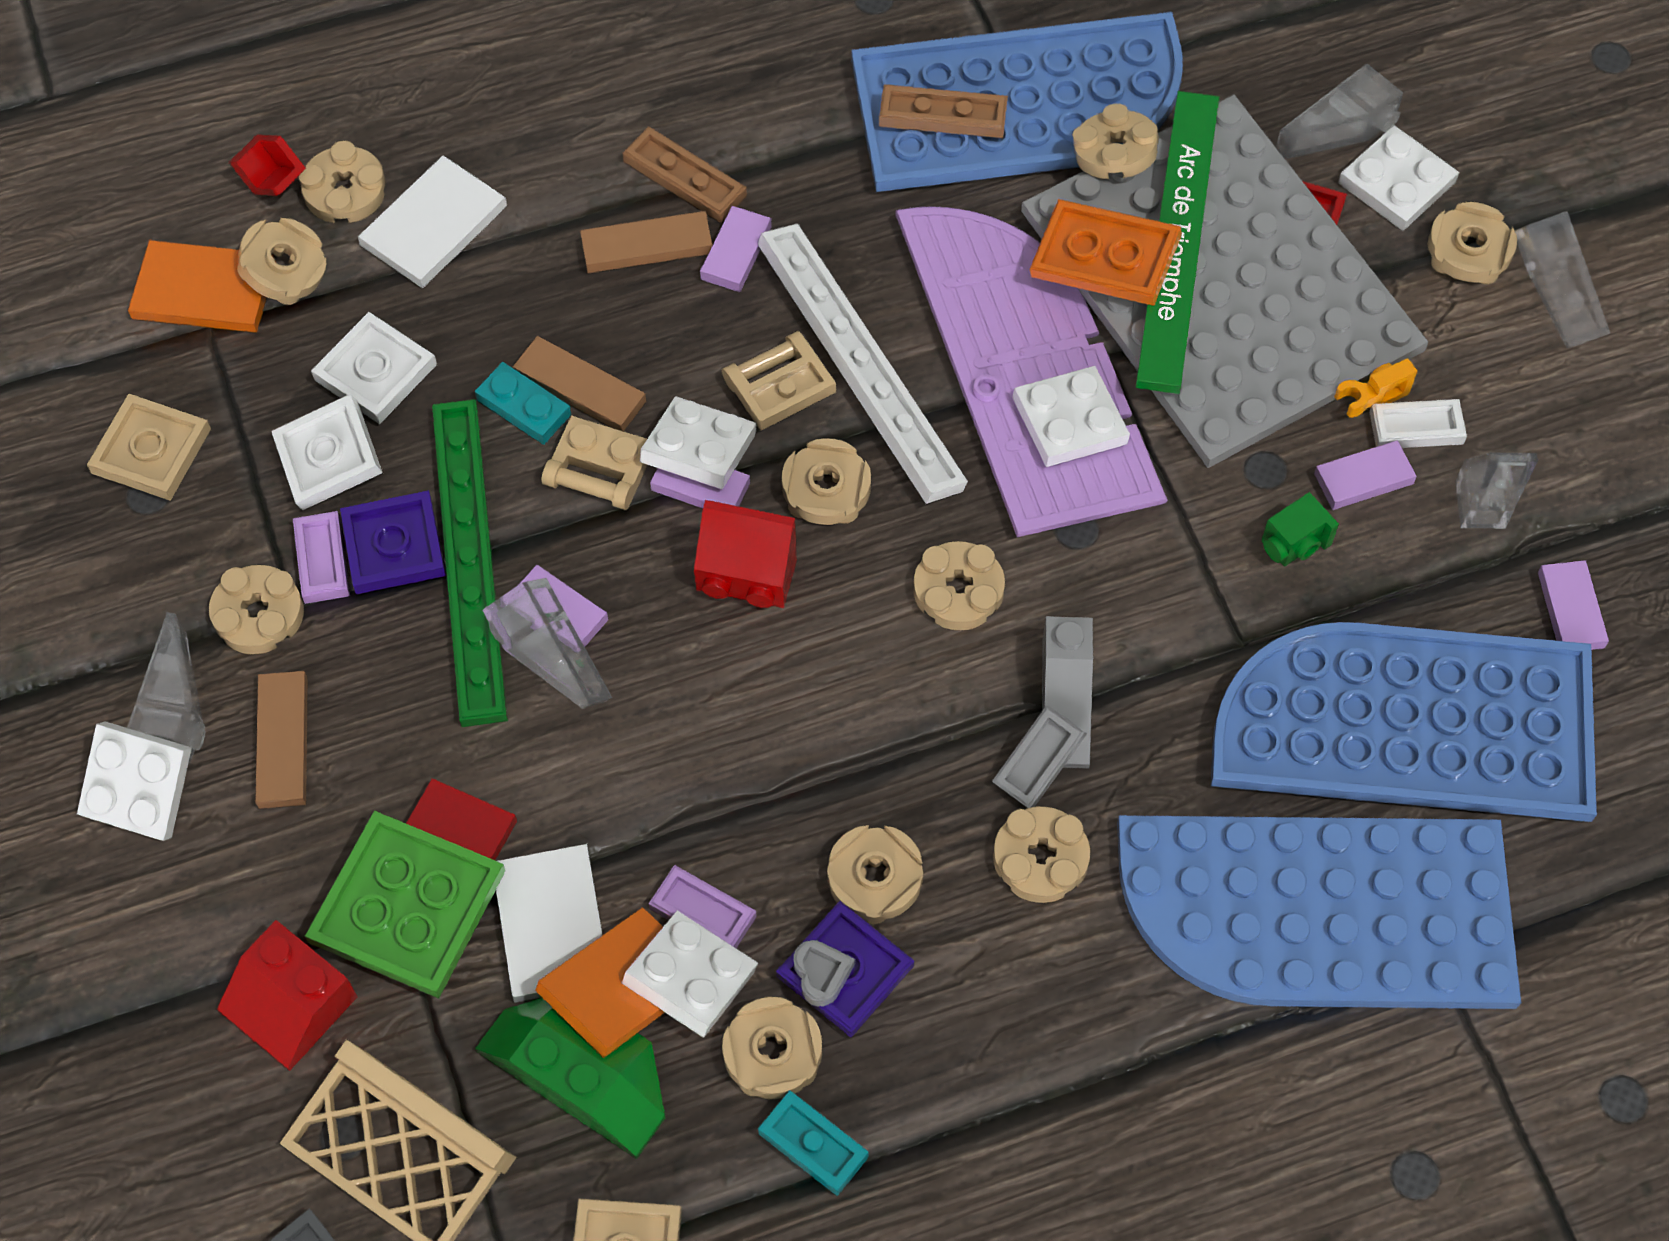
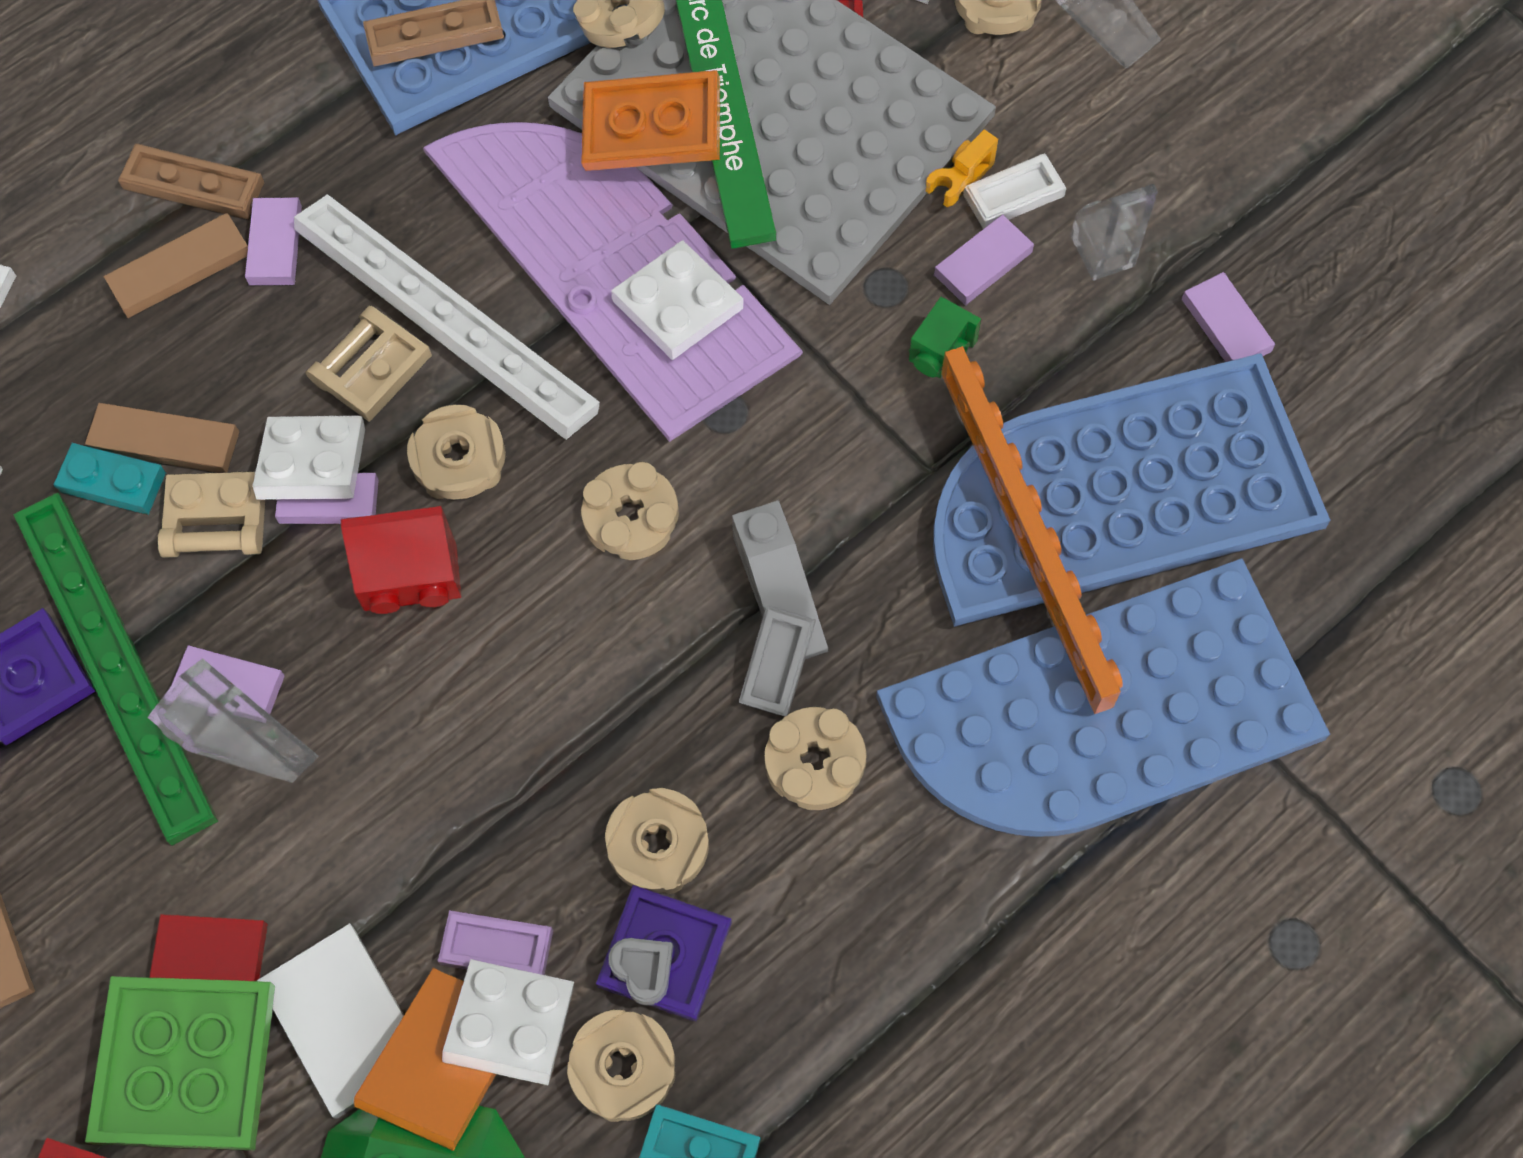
camera: 20 degrees left, 5 degrees up
(1312, 737) = (1038, 544): none -> orange plate

